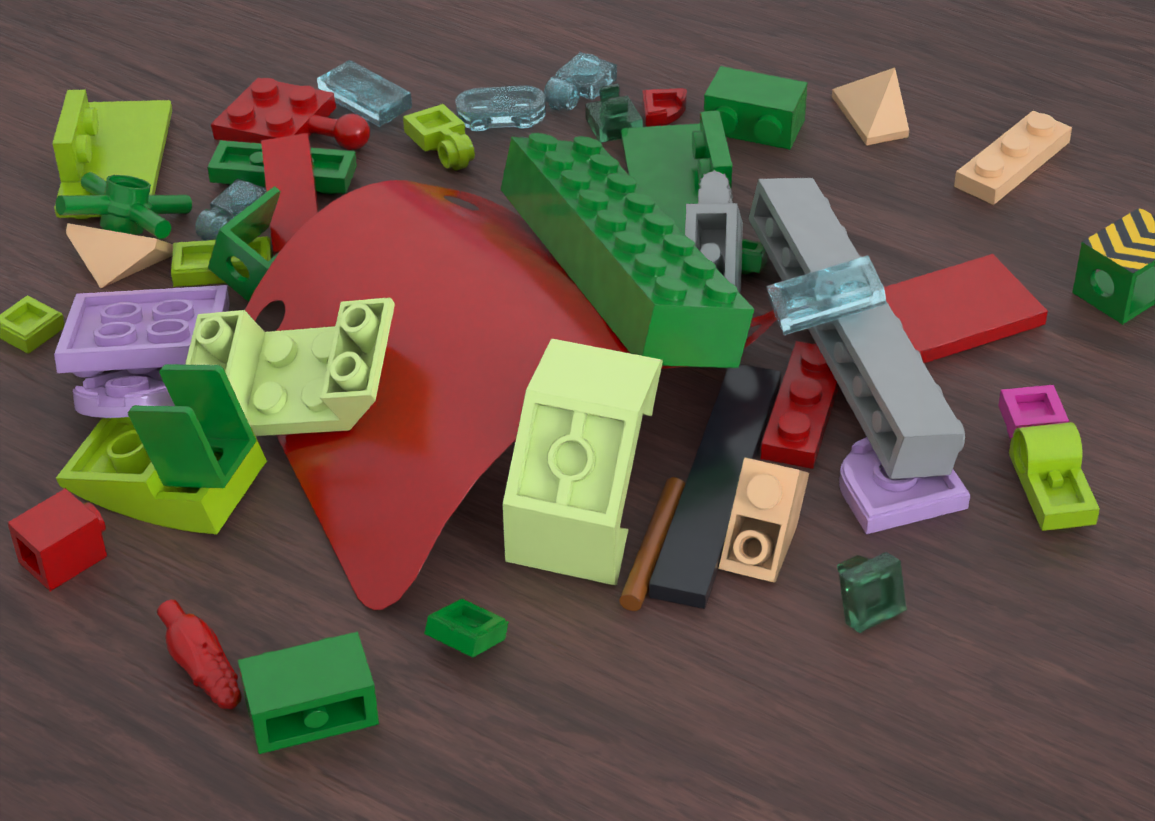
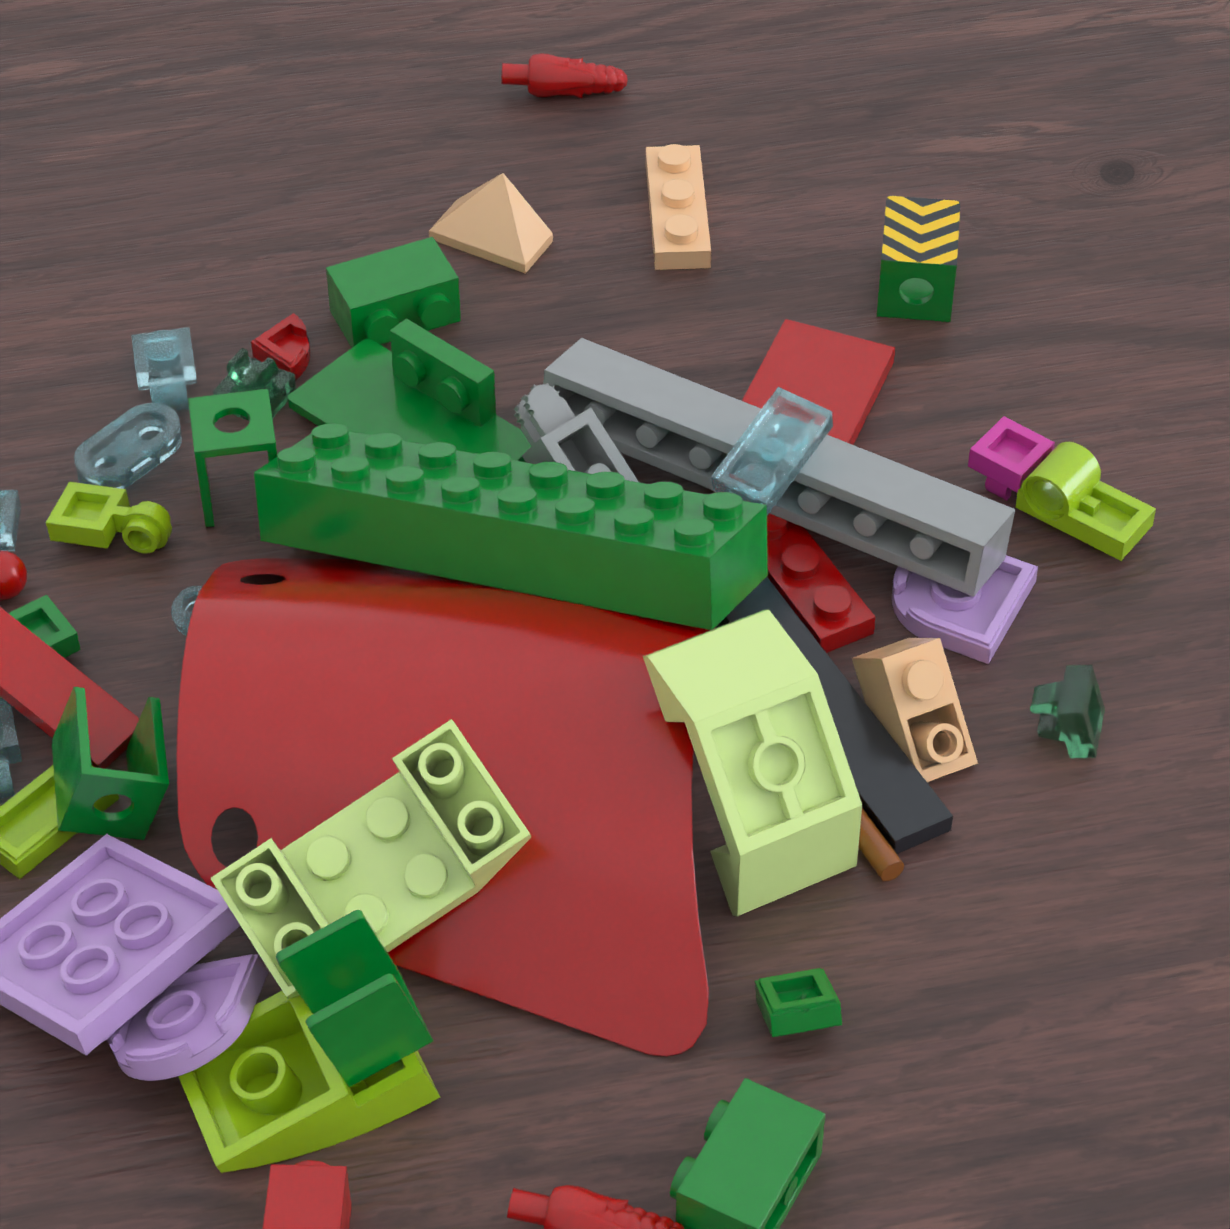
camera: 45 degrees left, 5 degrees up
(518, 118) = (212, 442): none -> green piece
(1028, 43) = (555, 75): none -> red piece

